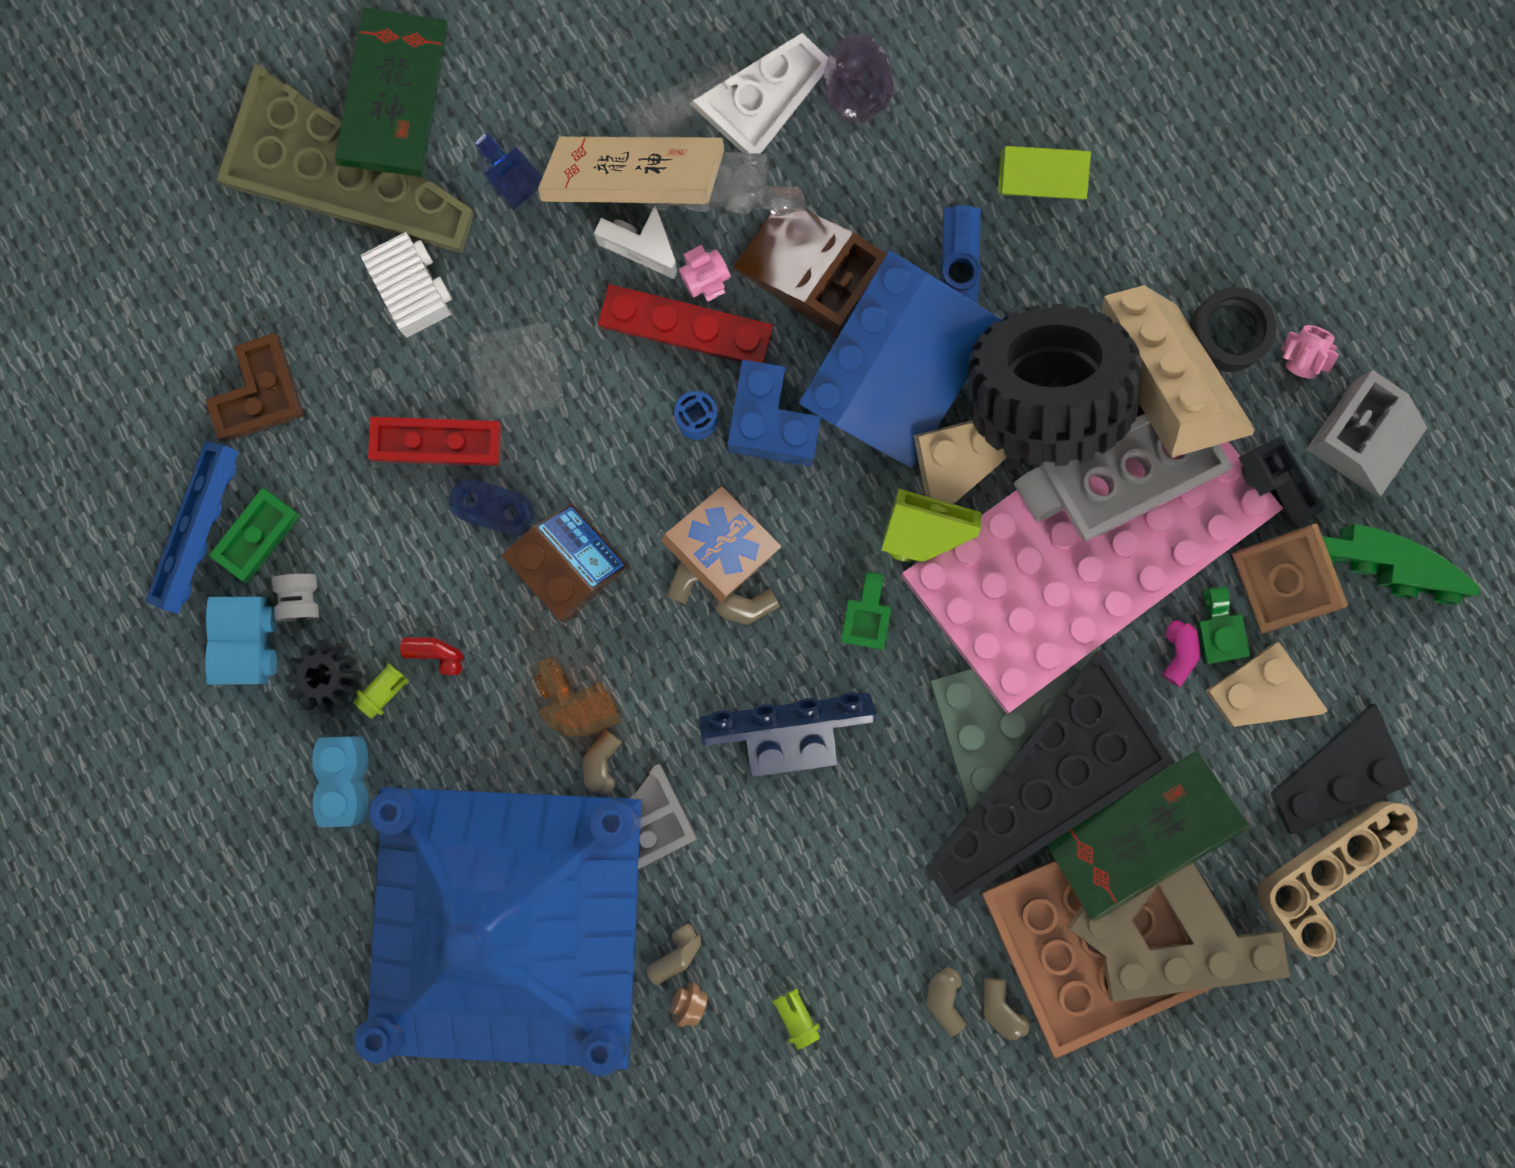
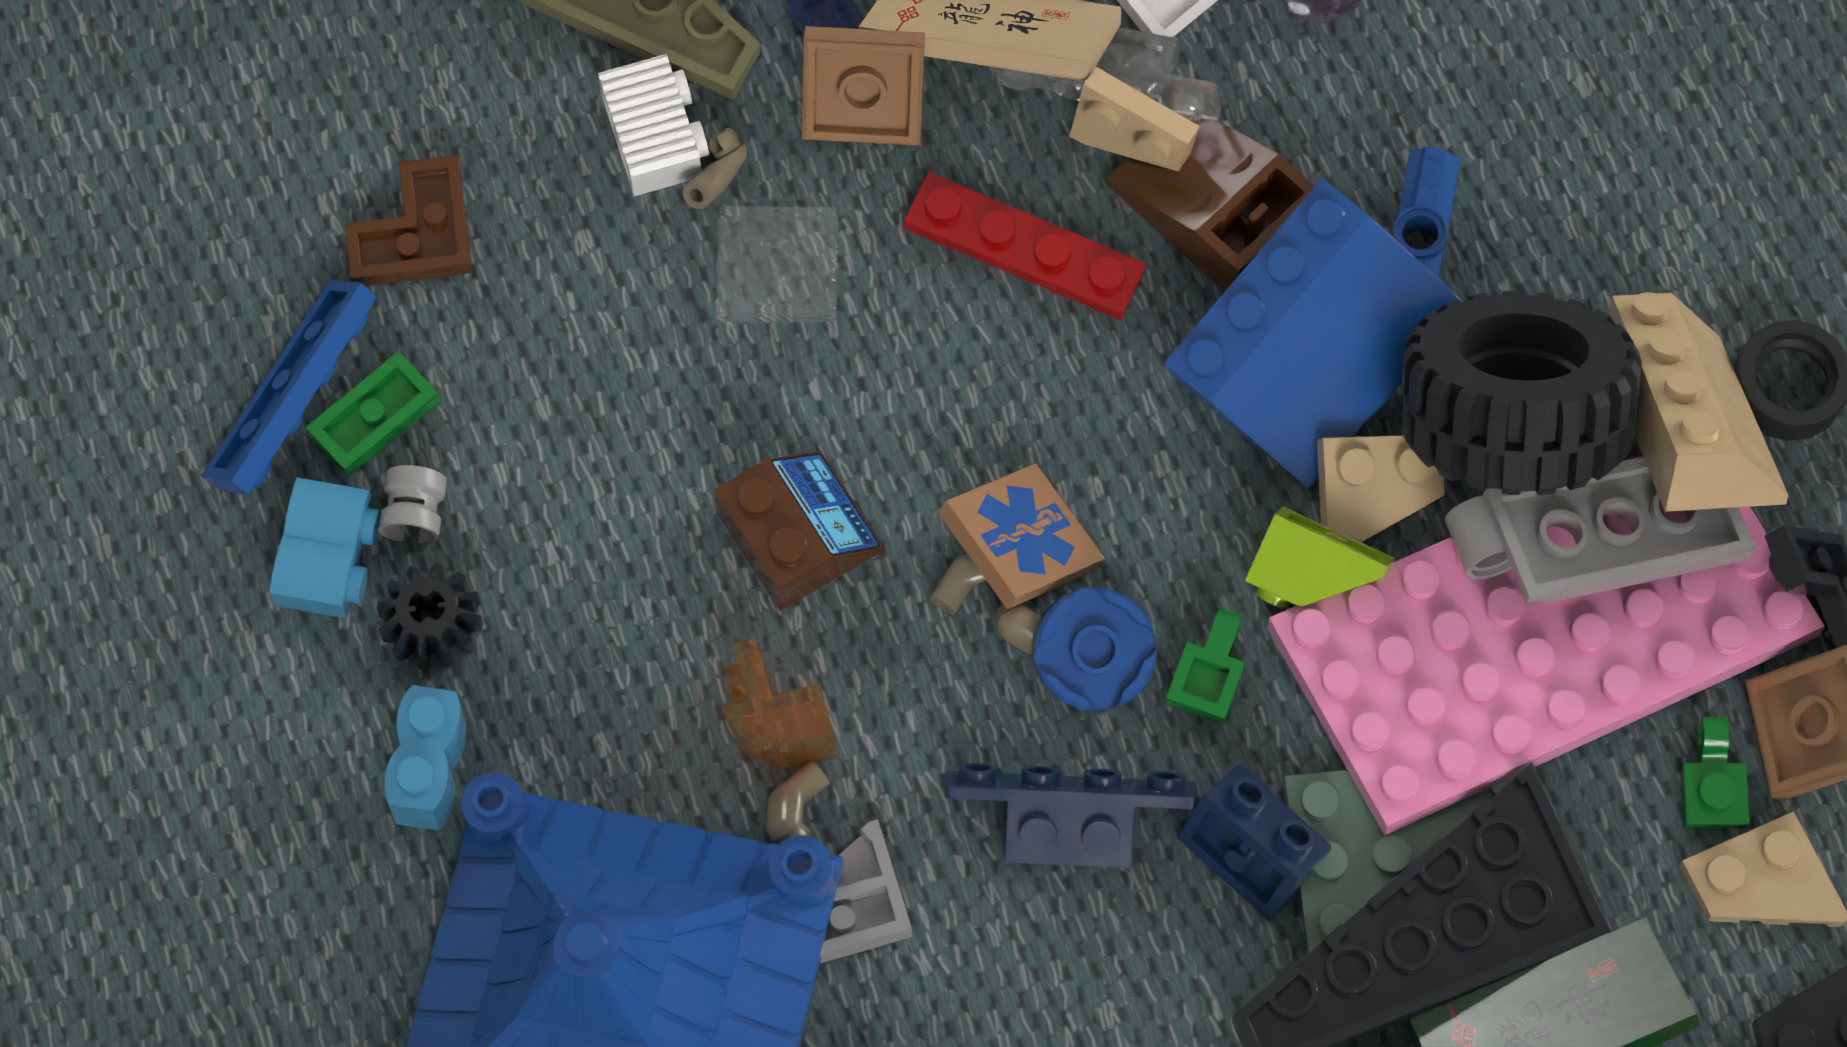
camera: 10 degrees right, 15 degrees down
(380, 691) = (503, 652): lime pin -> none
(433, 648) = (594, 610): red arm -> none
(434, 441) = (647, 334): red plate -> none
(462, 311) = (716, 177): none -> dark tan arm
(491, 507) = (706, 435): clear blue plate -> none
(549, 230) = (862, 85): none -> medium nougat tile
(647, 249) = (990, 135): white slope -> none
(695, 423) = (1016, 375): blue wheel -> none
(704, 273) = (1063, 179): bright pink gear -> none
(745, 226) = (1131, 124): none -> tan wing
(759, 424) = (1109, 393): blue brick -> none
(785, 615) = (1094, 649): none -> blue tile
(919, 733) = (1253, 841): none -> dark blue bracket
(1044, 172) = (1559, 128): lime hinge -> none
(1186, 649) = (1660, 802): dark pink arm -> none

